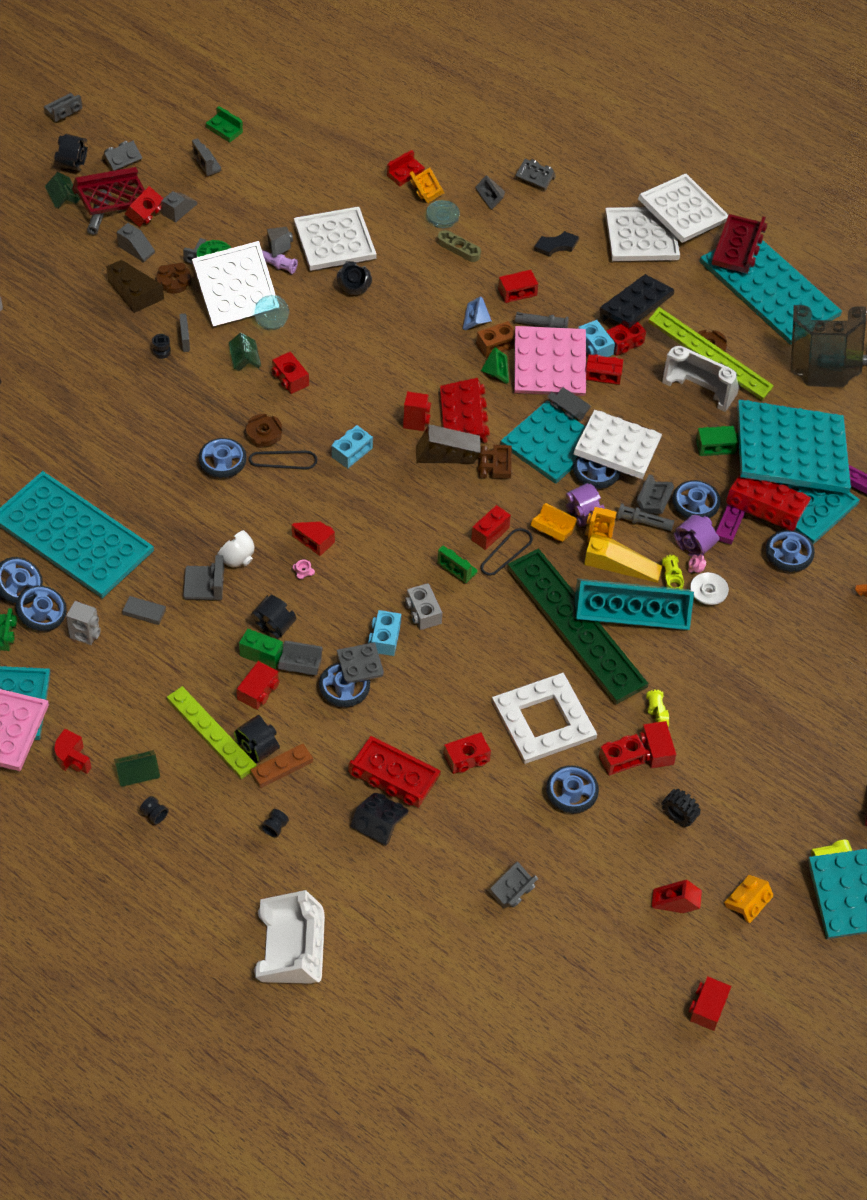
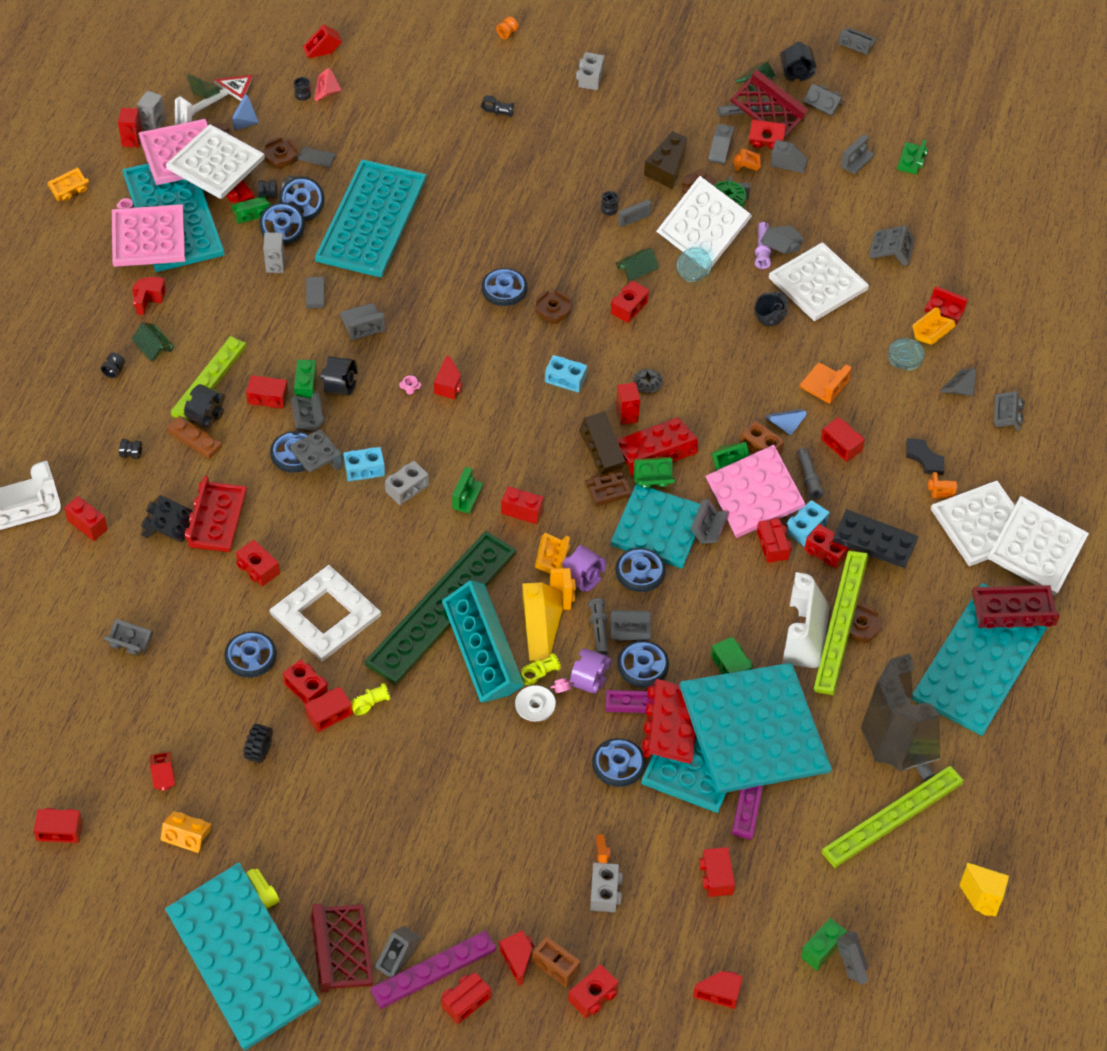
camera: 70 degrees right, 0 degrees up
(163, 234) = (748, 159): none -> orange bracket
(238, 550) = (402, 329): white cylinder -> none
(283, 466) = (520, 331): black piece -> none
(318, 176) = (893, 241): none -> dark grey bracket
(348, 885) = (86, 518): none -> red brick
(390, 398) = (643, 385): none -> dark grey gear
(451, 274) = (825, 382): none -> orange bracket
(469, 250) = (870, 373): olive beam -> none
(497, 422) = (653, 471): none -> green bracket
(515, 530) = (509, 522): black piece -> none
(596, 245) = (941, 489): none -> orange bracket
(618, 444) = (676, 576): white plate -> none

